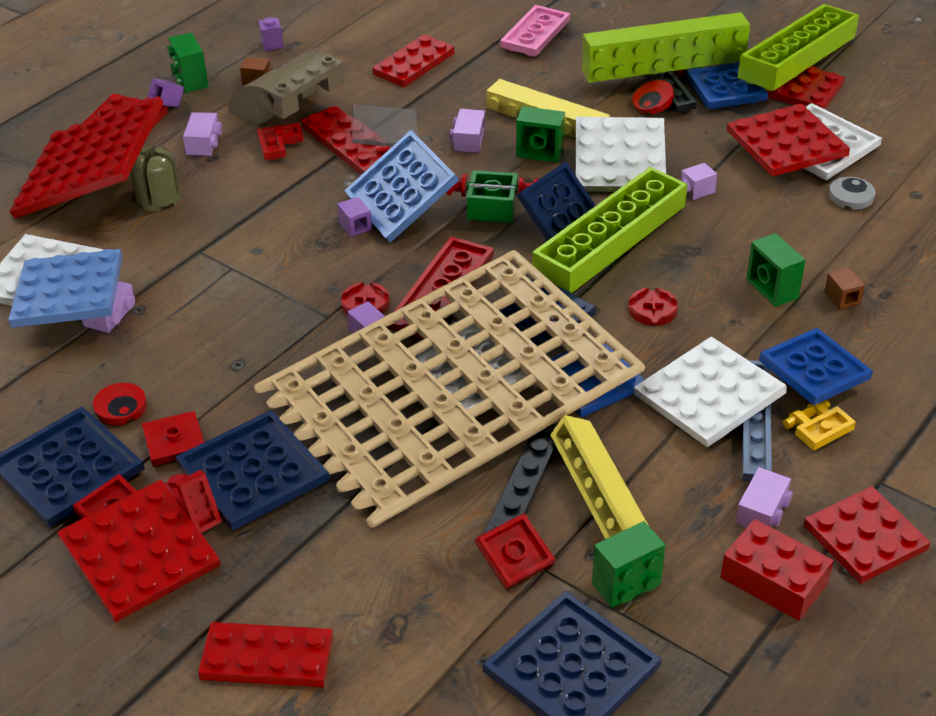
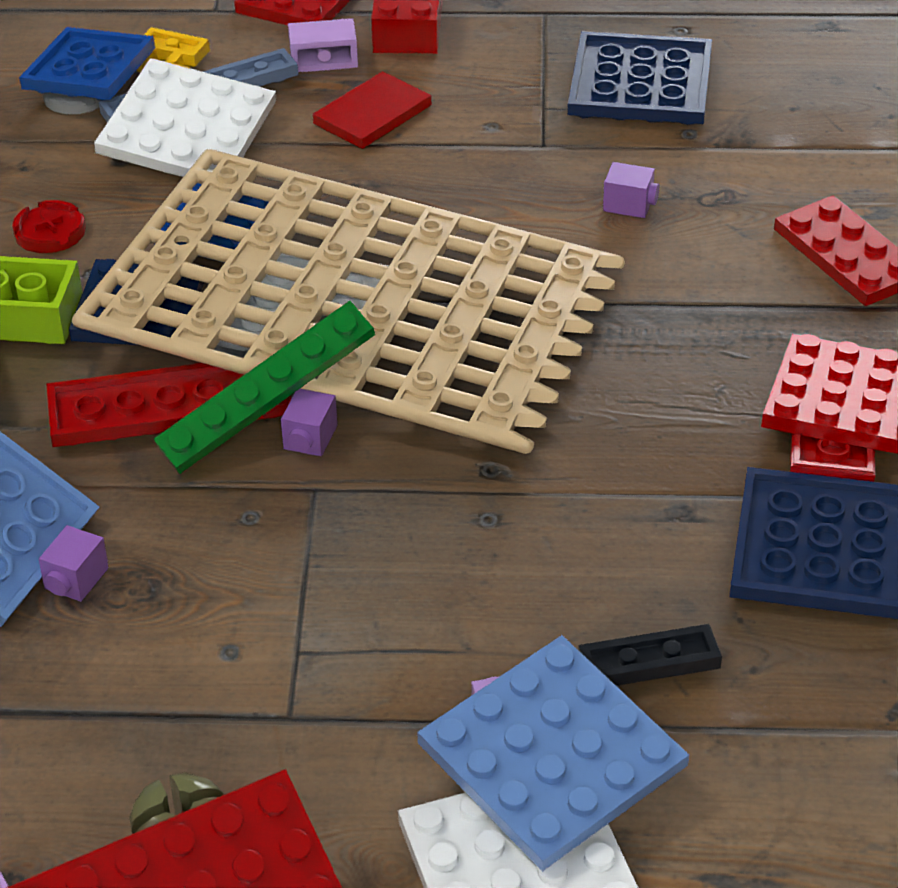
camera: 125 degrees left, 0 degrees up
(83, 361) = (655, 655): none -> black plate
(119, 403) = (677, 573): red tile -> none
(171, 437) = (674, 485): red plate -> none
(196, 499) = (749, 391): red bracket -> none
(254, 468) = (648, 385): dark blue plate -> none
(360, 293) = (253, 465): red tile -> none
(394, 302) = (264, 387): none -> green plate
(434, 566) = (630, 190): none -> medium lavender brick
(514, 551) = (552, 153): red plate -> none
(525, 478) = (472, 191): black plate -> none
(596, 476) = (411, 129): light yellow brick -> none
(628, 564) = (504, 68): green brick -> none
(663, 496) = (372, 109): none -> red tile

